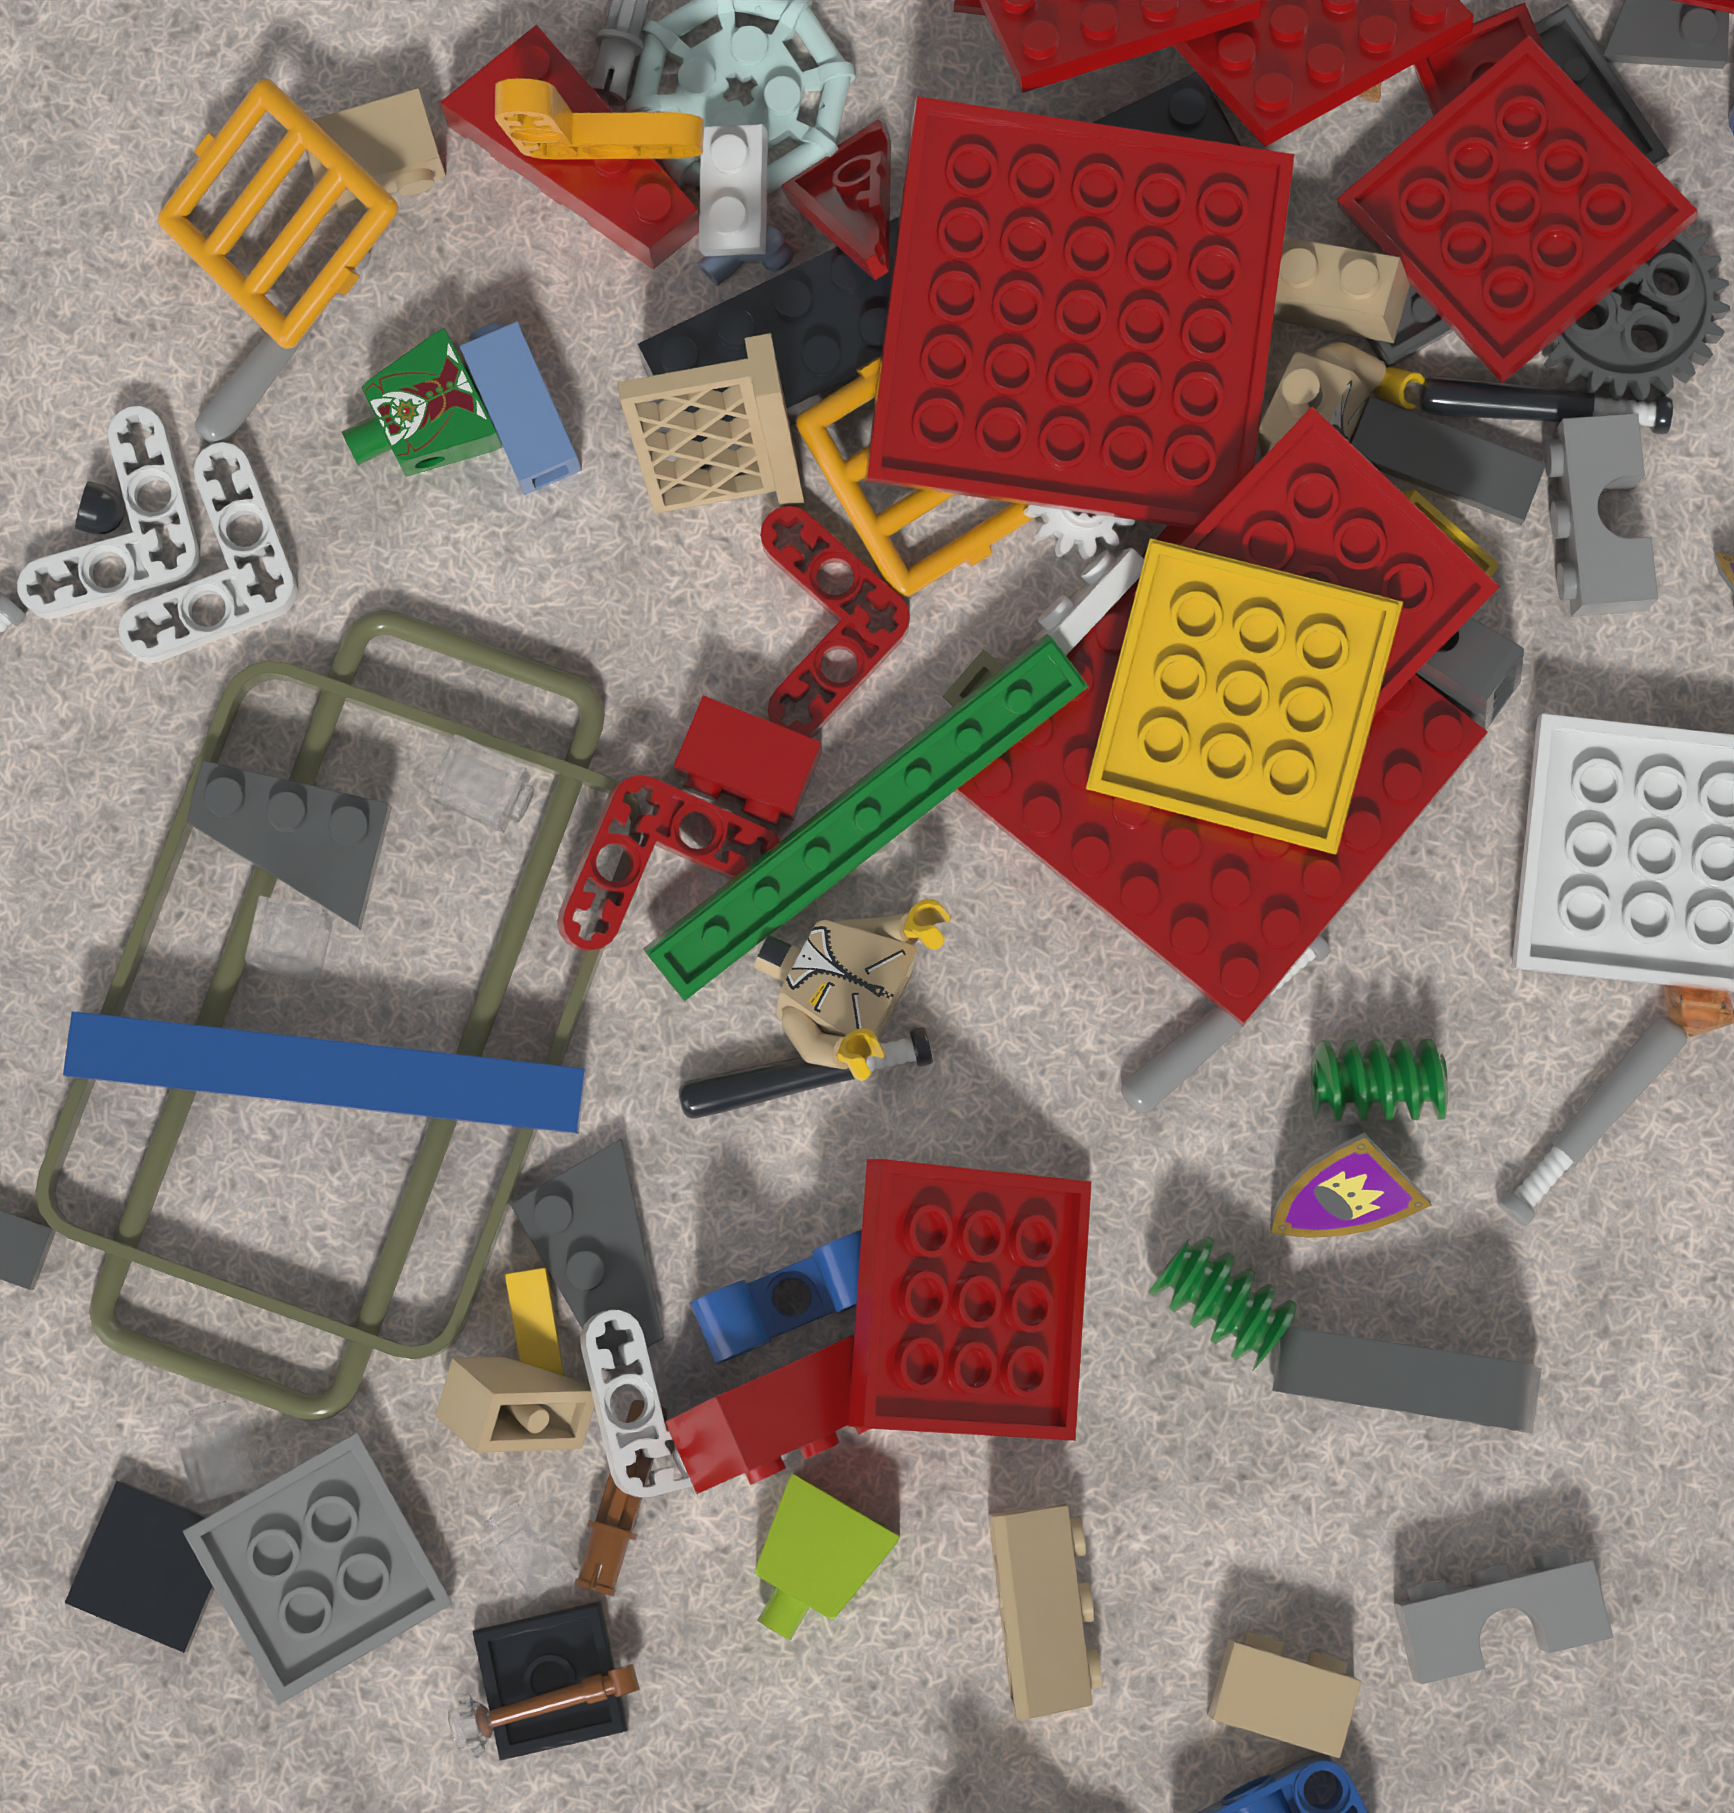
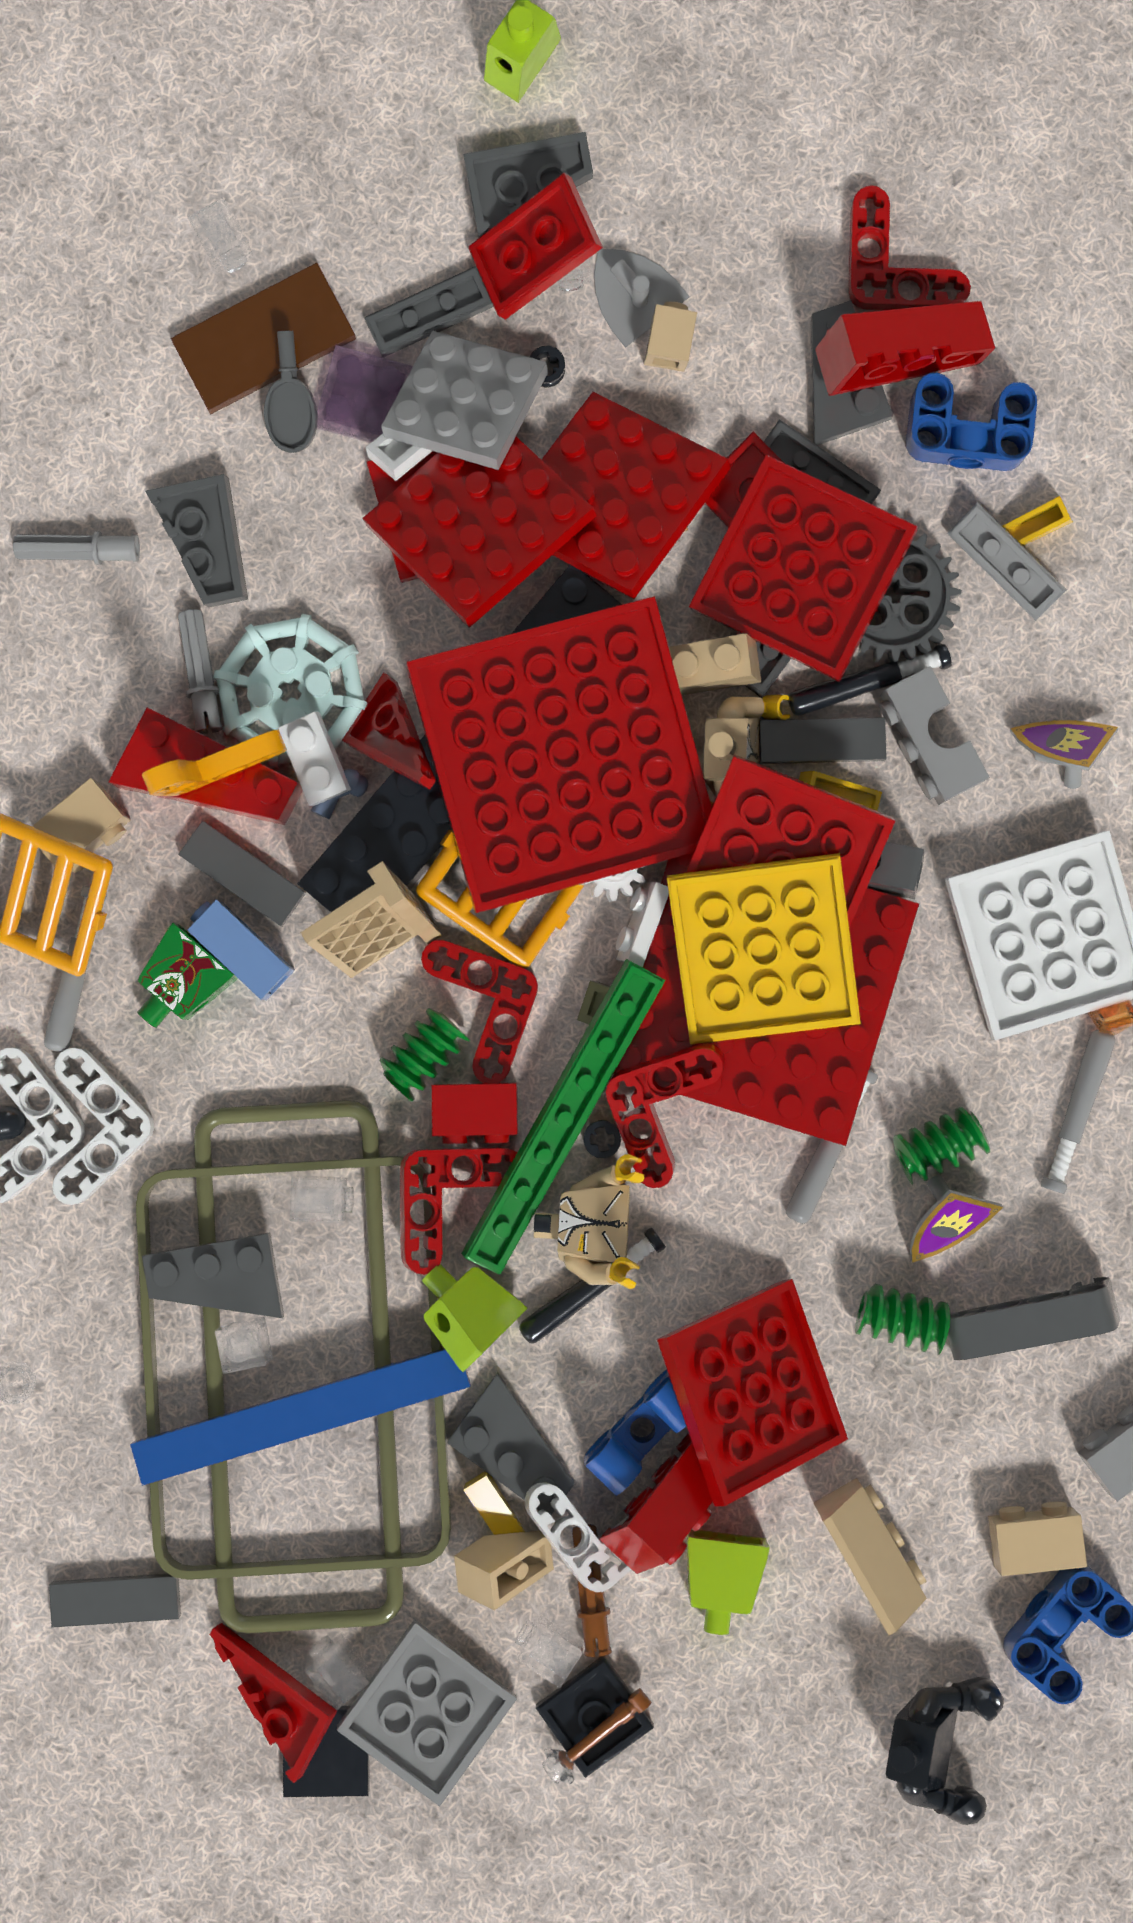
camera: 20 degrees left, 5 degrees up
(122, 1471) = (282, 1704): none -> red wing
(566, 308) = (242, 873): none -> dark grey tile
(620, 1030) = (469, 1312): none -> lime torso
(709, 649) = (422, 1052): none -> green piece
(924, 868) = (610, 1129): none -> black bush
(1001, 833) = (649, 1092): none -> red beam

